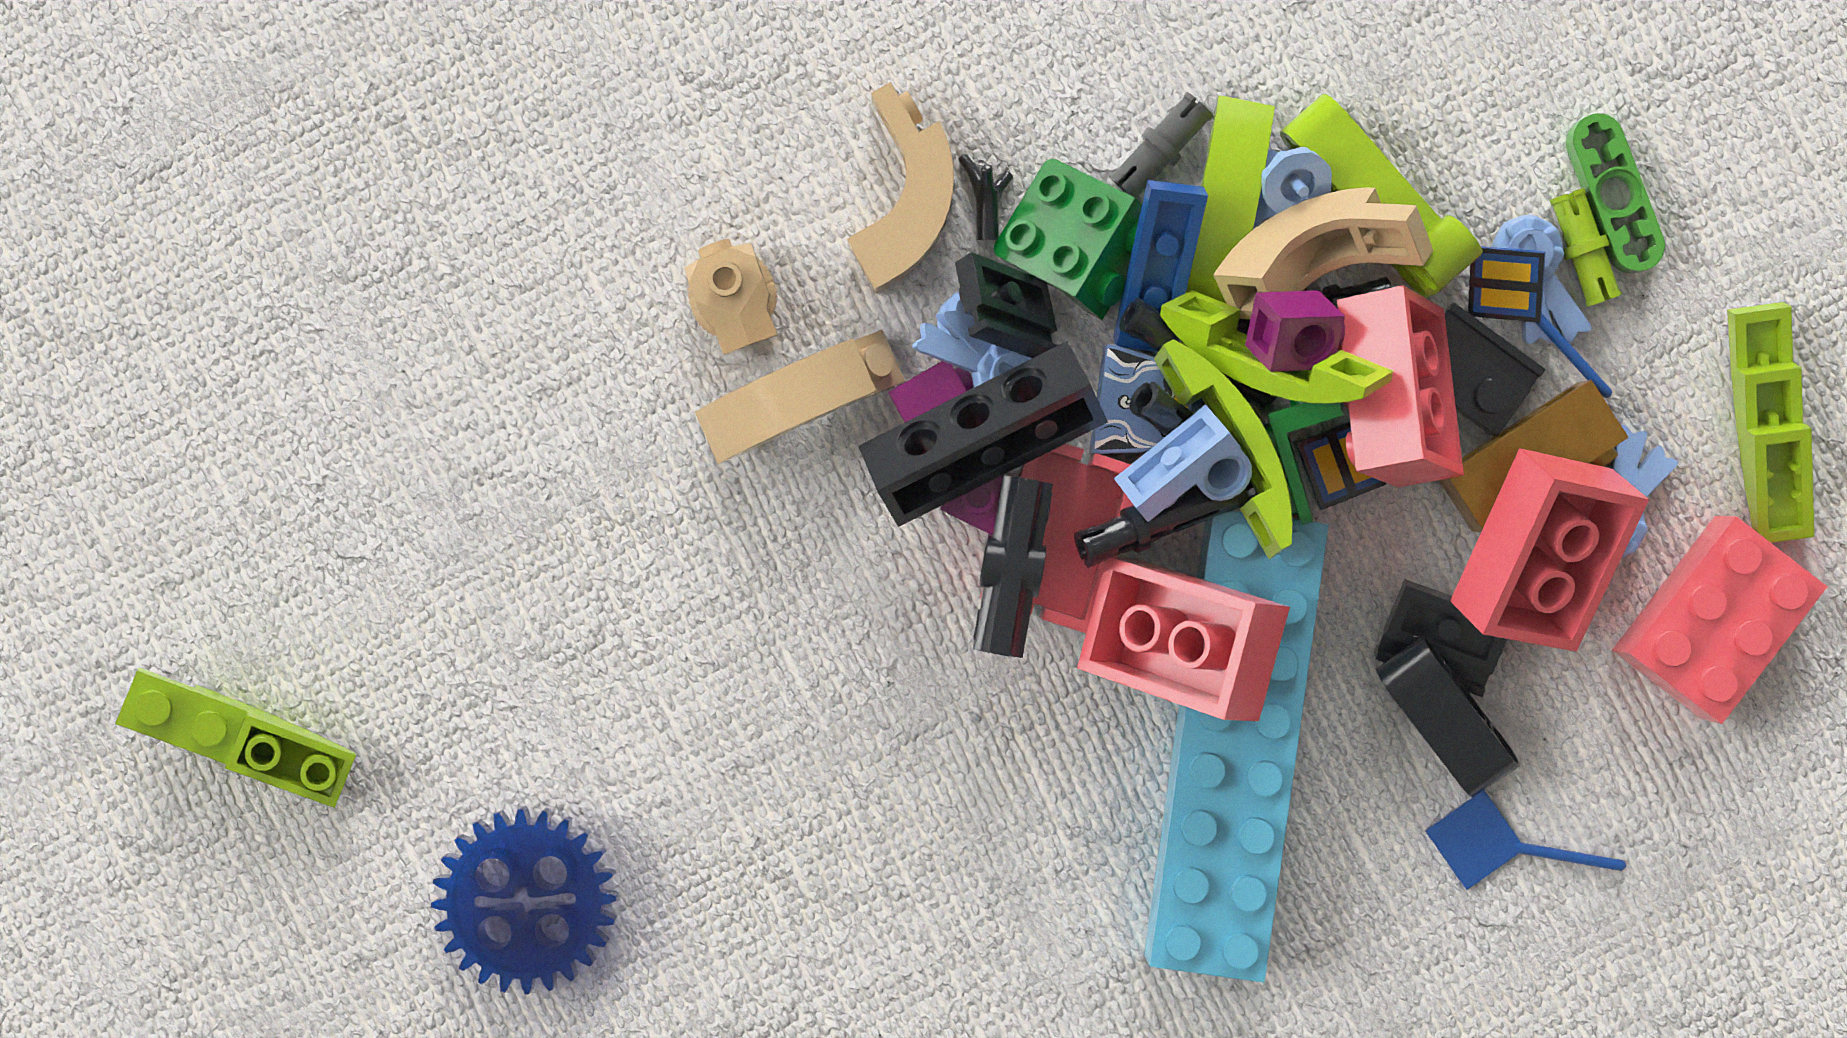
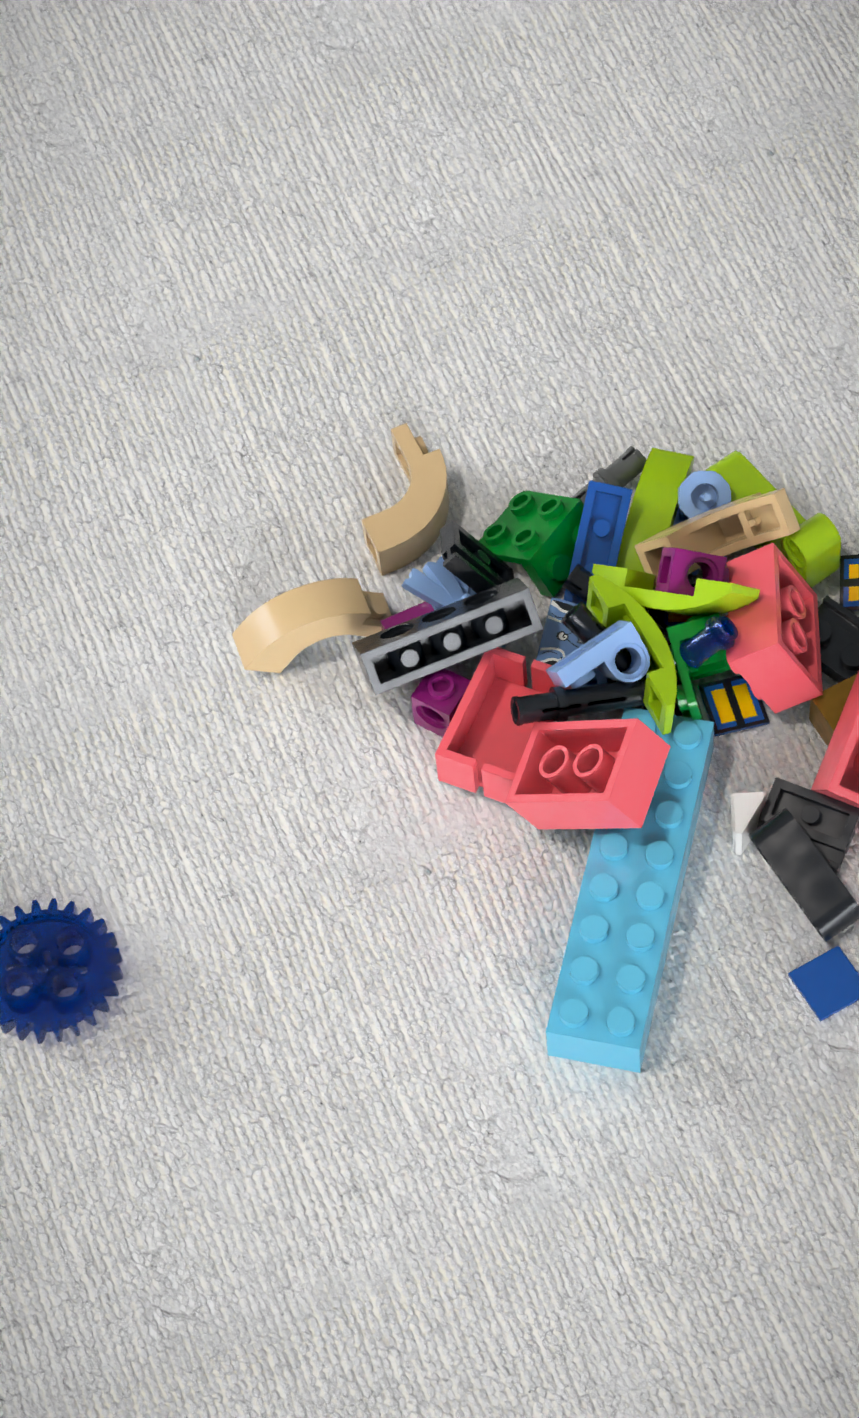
camera: 15 degrees right, 30 degrees down
(732, 294) = (270, 559): tan hand -> none
(986, 196) = (472, 508): black bar -> none
(1012, 566) = (460, 722): black piece -> none
(1340, 436) = (717, 635): none -> clear blue pin
(1366, 638) = (744, 817): none -> white slope

